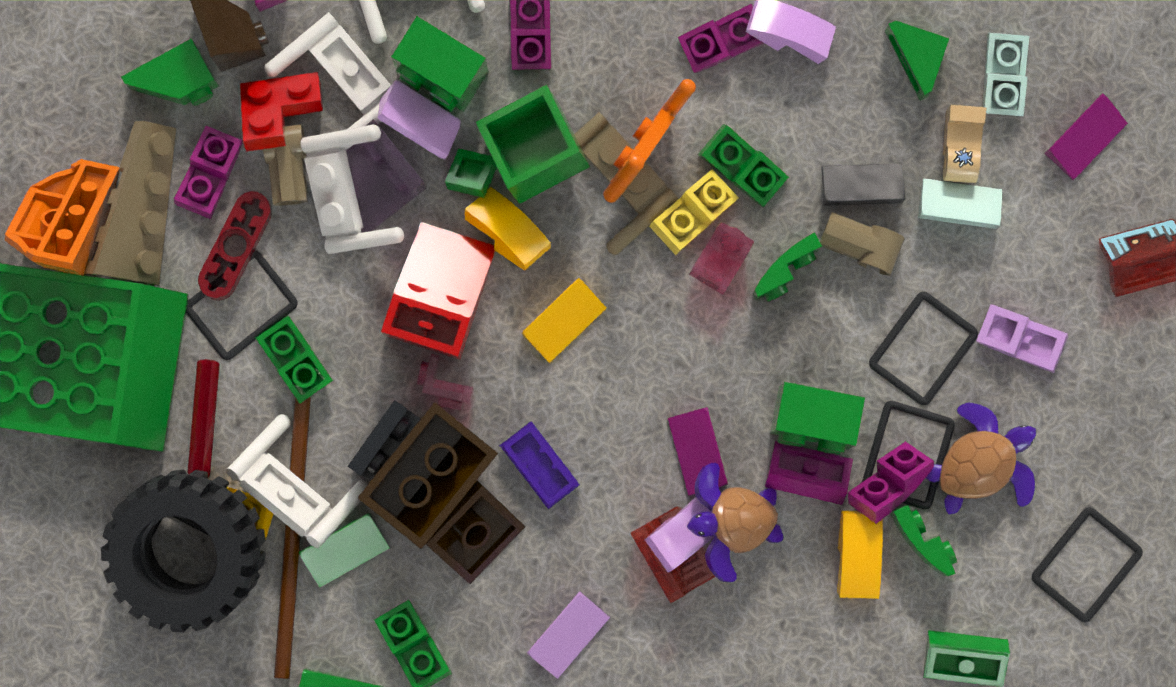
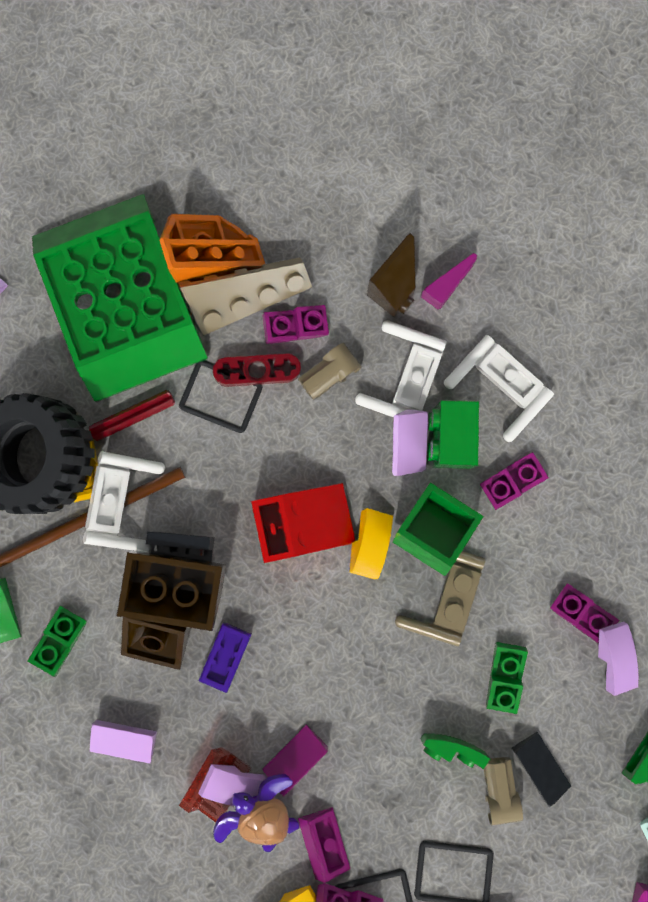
camera: 60 degrees right, 0 degrees up
(175, 76) = (346, 266): green slope -> none
(269, 101) = (362, 336): red plate -> none
(294, 359) = (203, 453): green slope -> none
(335, 191) = (329, 415): white plate -> none
(345, 550) = (98, 560): slope -> none
(381, 180) = (351, 433): clear purple bracket -> none
(449, 394) = (238, 569): clear pink bracket -> none
(470, 173) = (394, 497): green tile -> none
(564, 320) = (332, 616): yellow slope -> none
(648, 135) = (466, 606): orange plate -> none
(693, 212) = (455, 662): light yellow slope -> none
(722, 257) = (435, 701): clear pink bracket -> none
(817, 417) = (364, 836): green piece -> none
(960, 203) = (568, 844): light aqua slope -> none
(963, 143) = (611, 823): tan leg -> none

